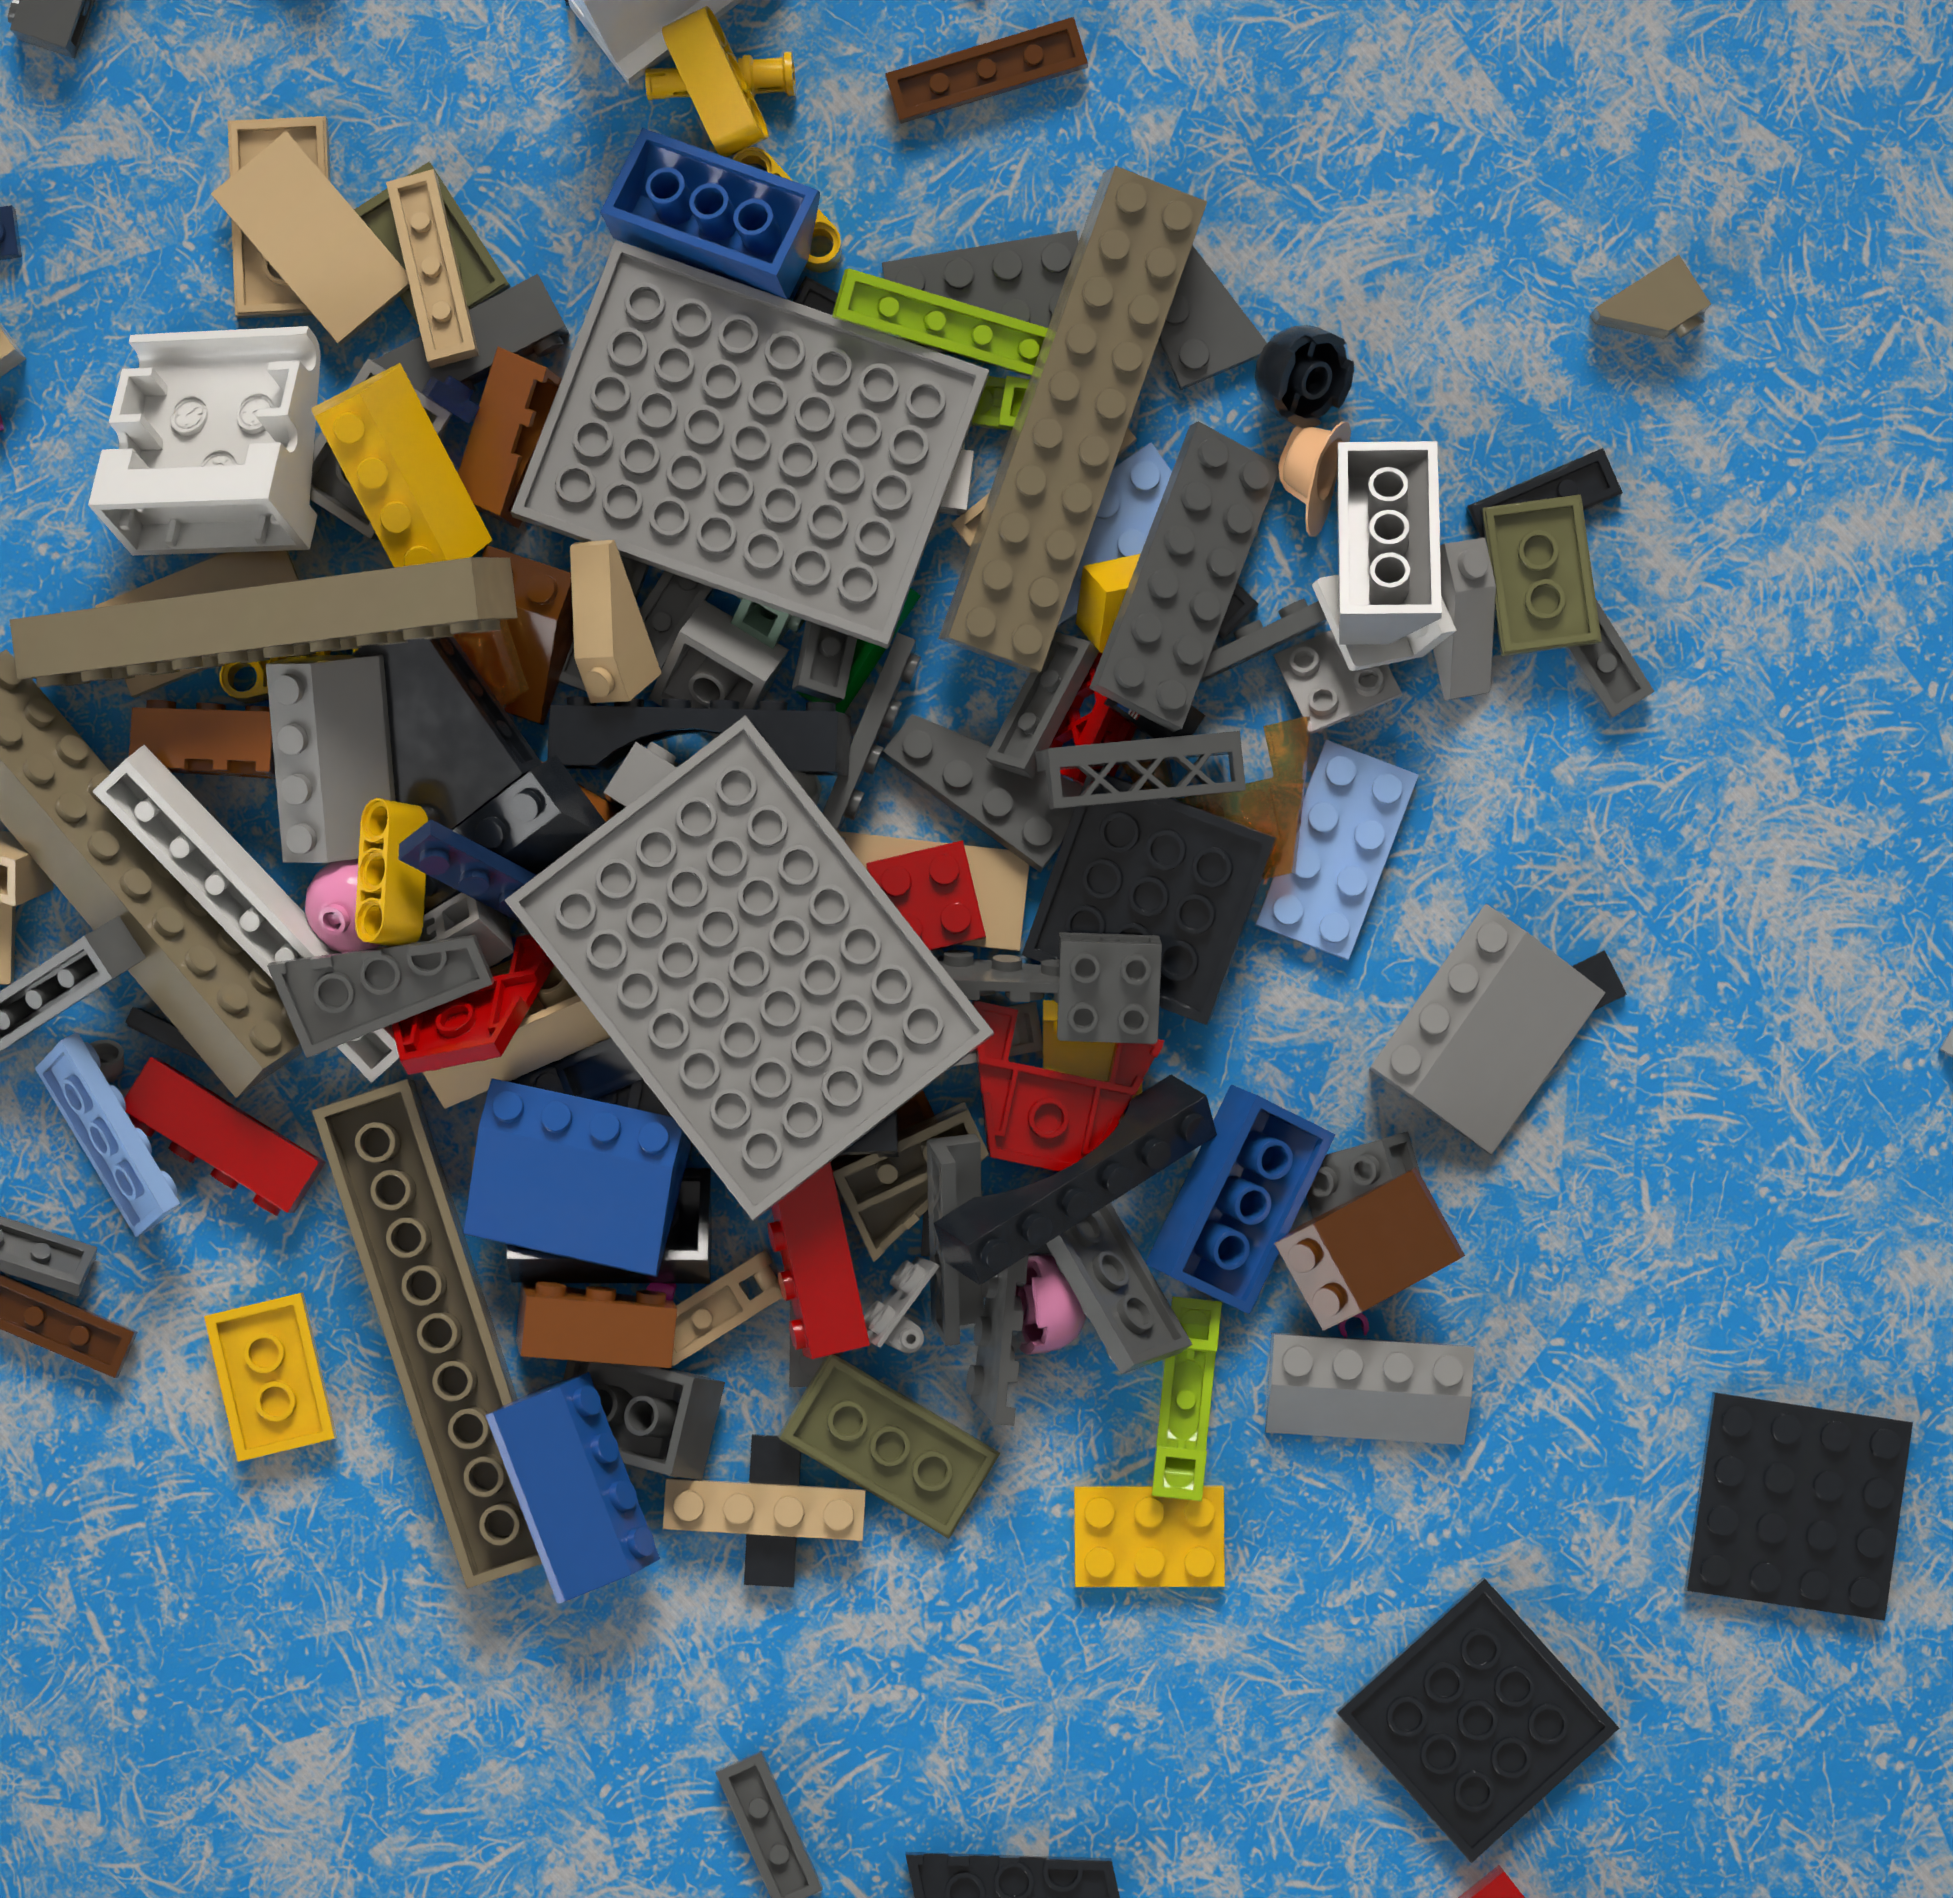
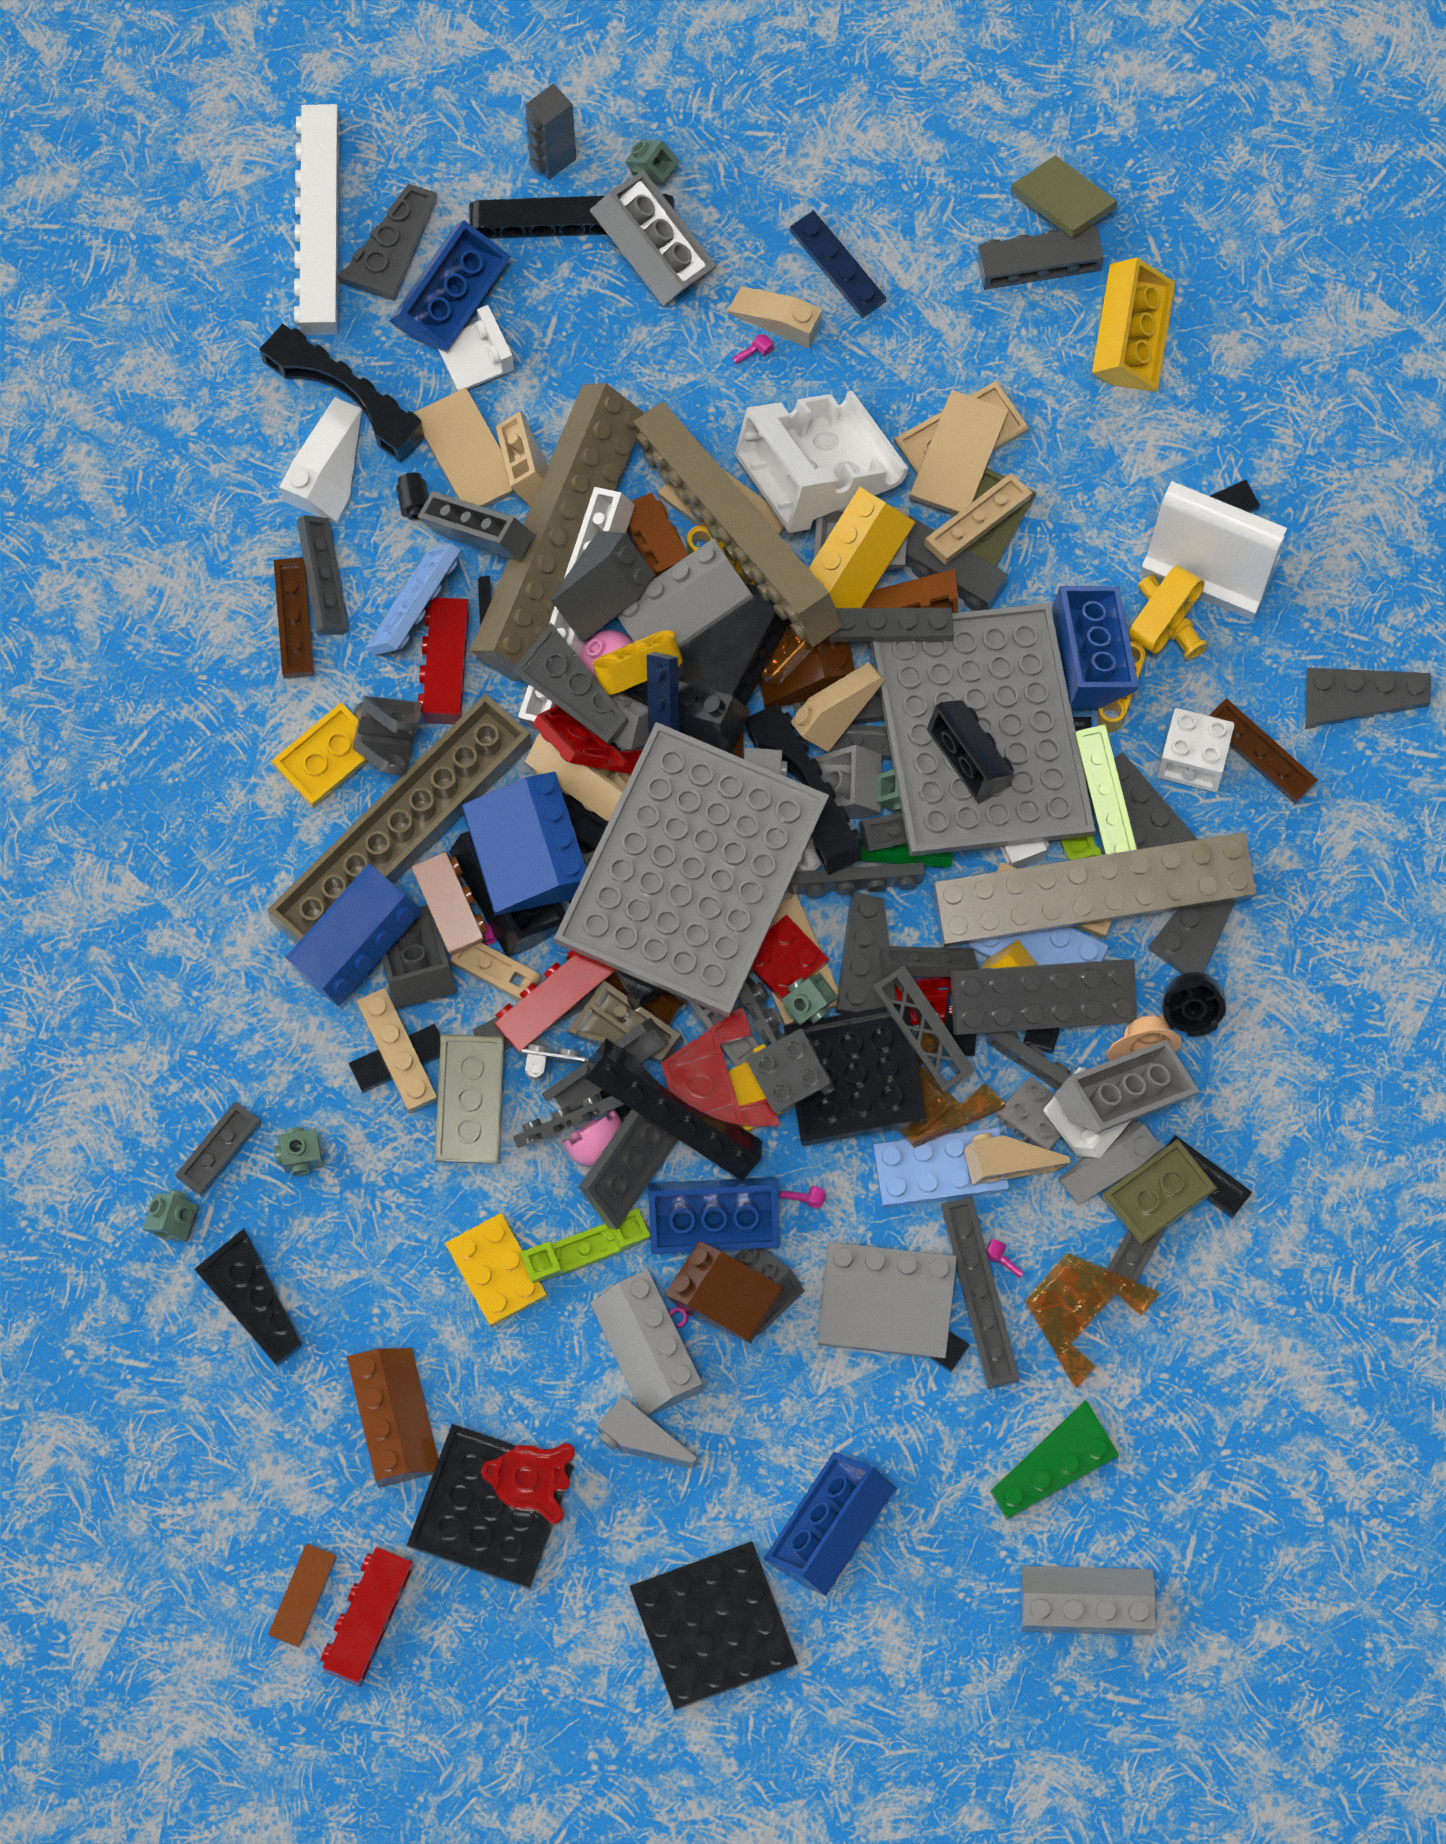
camera: 55 degrees right, 15 degrees down
(111, 1058) = (453, 582): light grey hinge -> none
(248, 861) = (601, 583): none -> dark grey slope
(296, 1281) = (386, 732): none -> dark grey piece
(452, 396) = (914, 563): clear blue plate -> none
(536, 478) = (894, 625): none -> dark grey plate
(787, 478) = (970, 750): none -> black slope
(840, 1703) = (299, 1151): none -> sand green brick
(937, 157) = (1196, 750): none -> white bracket
(1011, 901) = (809, 999): none -> sand green brick
(1280, 1786) = (393, 1415): none -> dark orange slope
(1286, 1046) = (814, 1198): none -> dark pink hand
(1383, 762) = (1007, 1158): none -> tan slope
(1471, 1648) = (530, 1478): none -> red tile
(1488, 1468) = (640, 1436): none -> light grey slope
(1495, 842) = (995, 1254): none -> dark pink hand
(1542, 896) = (980, 1293): none -> dark grey plate
(1622, 777) = (1072, 1299): none -> clear orange wing
(1657, 303) = (1349, 1175): dark tan slope -> none
(1748, 1276) = (830, 1523): none -> blue slope
(1827, 921) = (1058, 1461): none -> green wing

